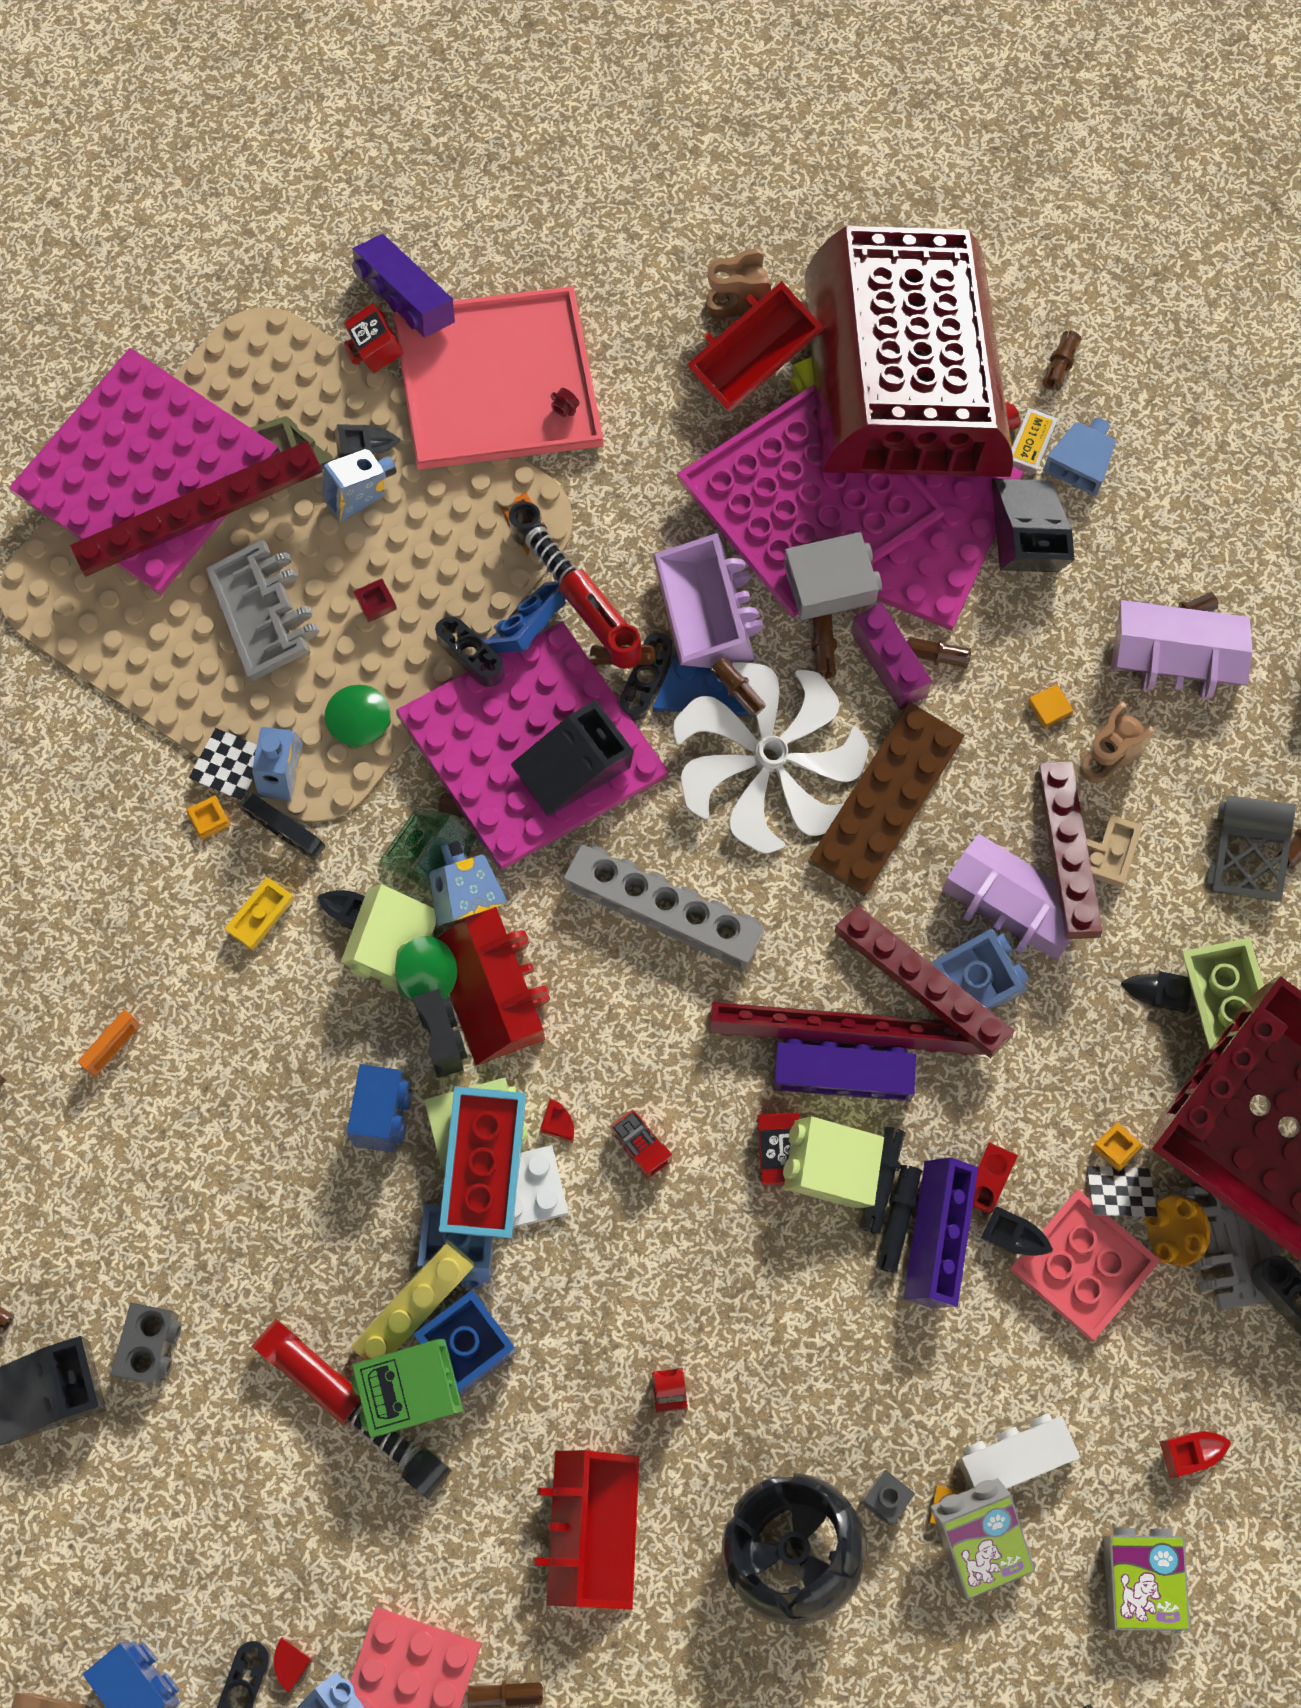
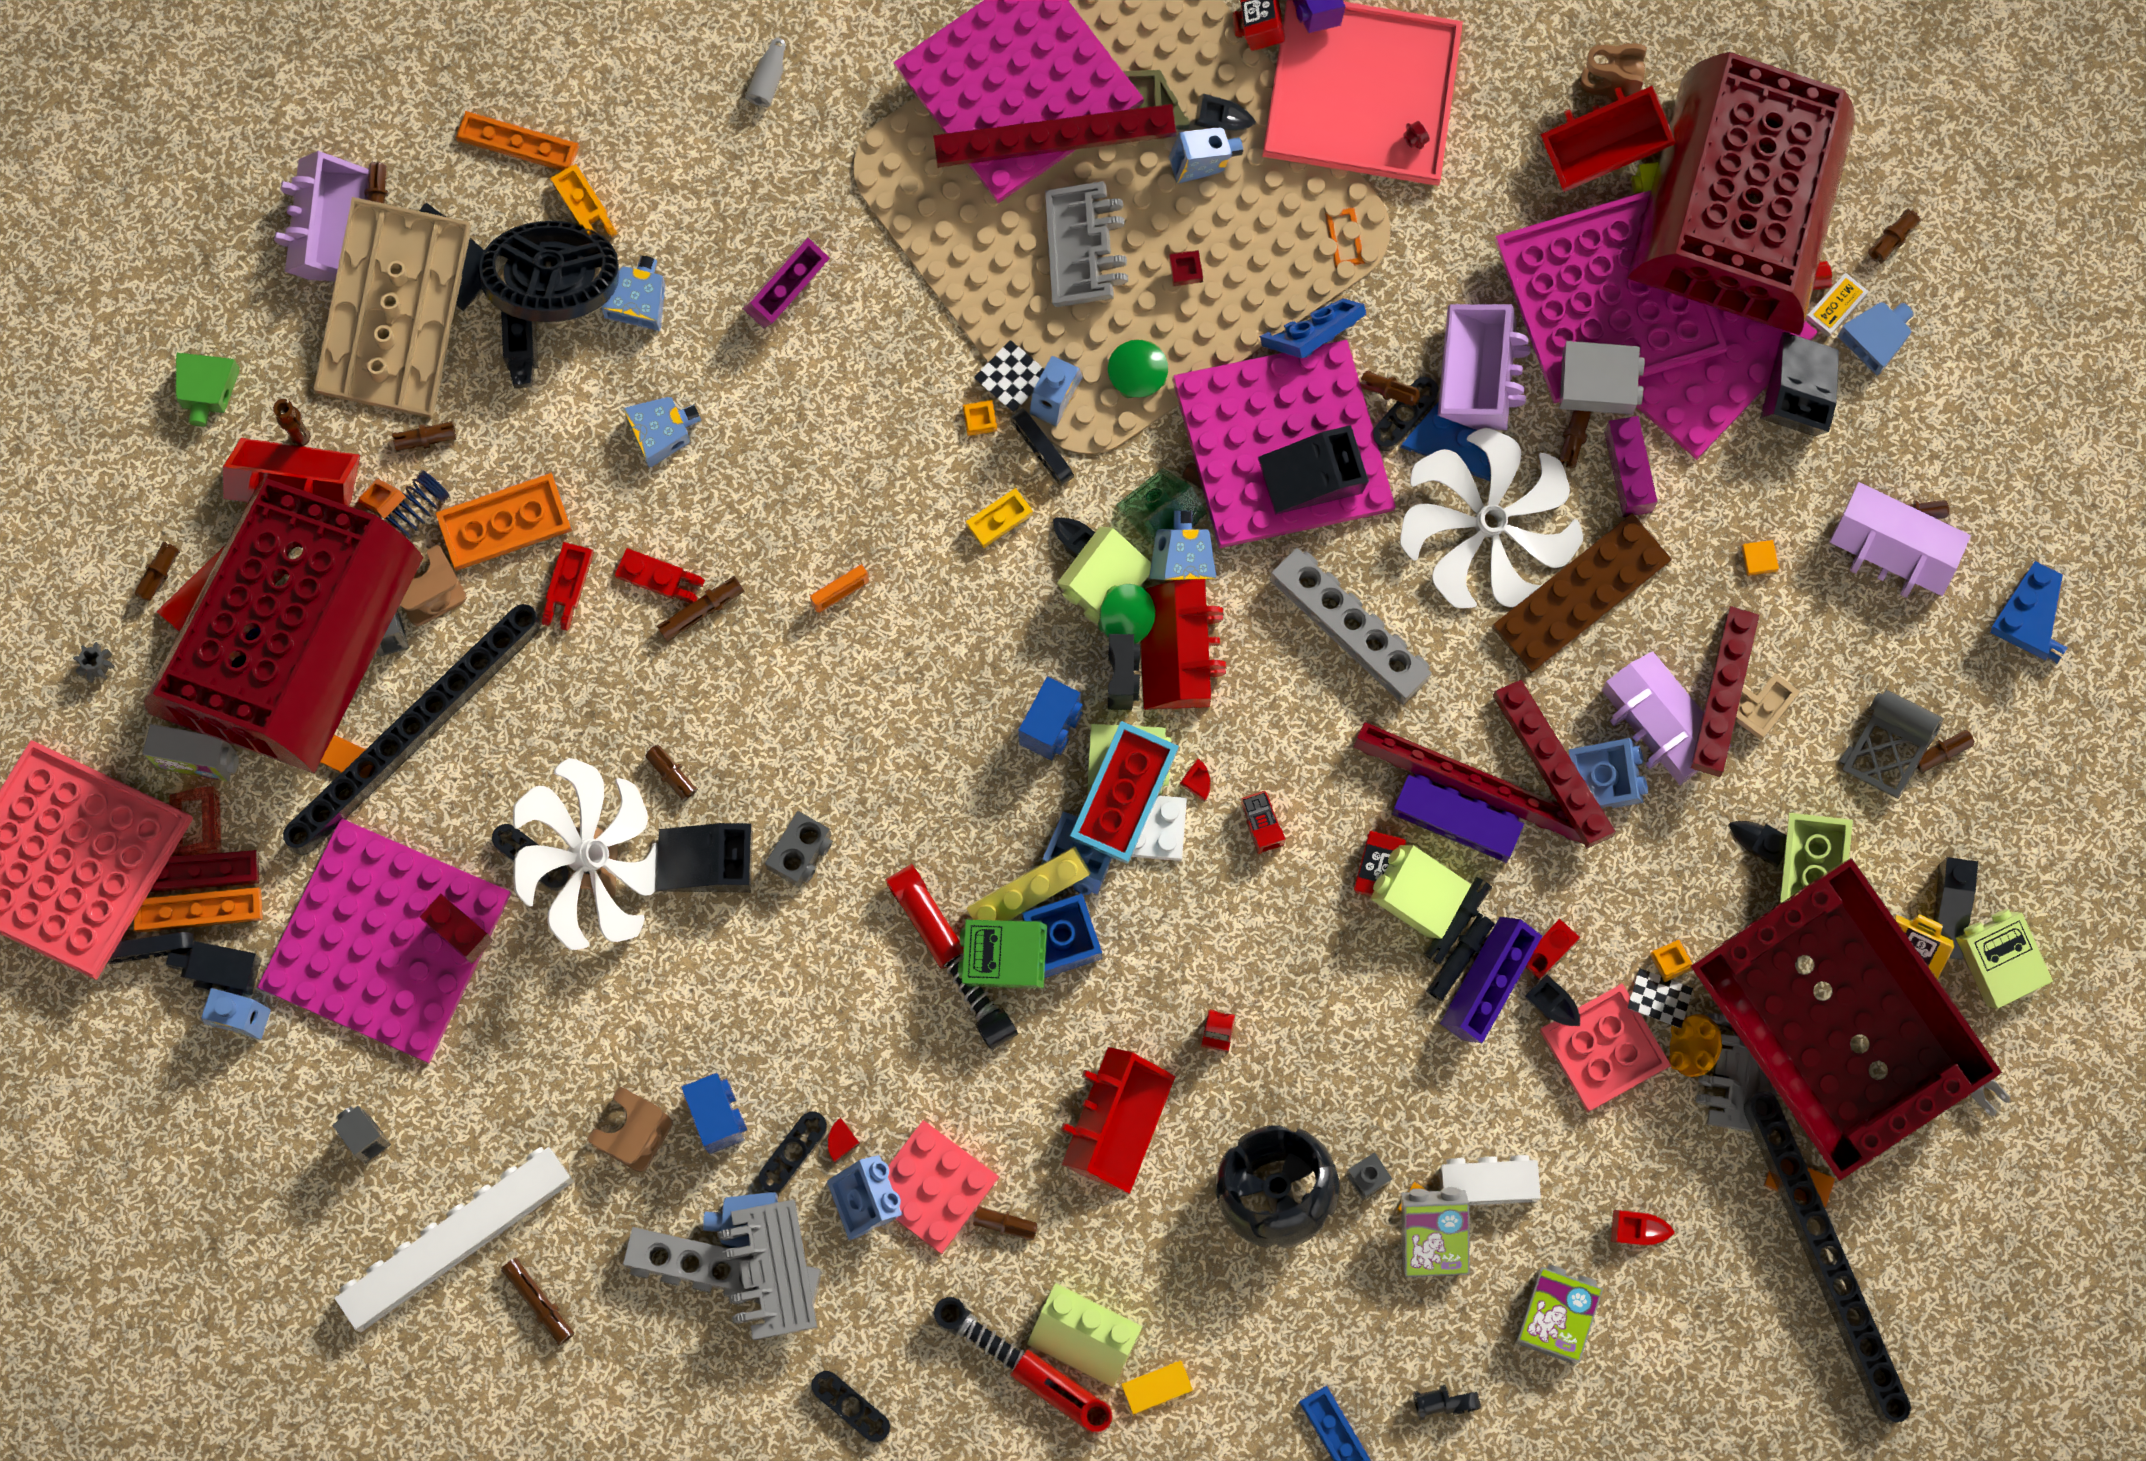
camera: 20 degrees right, 5 degrees up
(473, 663) = (1254, 354): black beam -> none
(577, 587) = (1369, 314): piece -> none
(738, 686) = (1482, 451): reddish brown axle -> none
(940, 652) = (1676, 476): reddish brown axle -> none
(1116, 744) = (1802, 612): medium nougat piece -> none

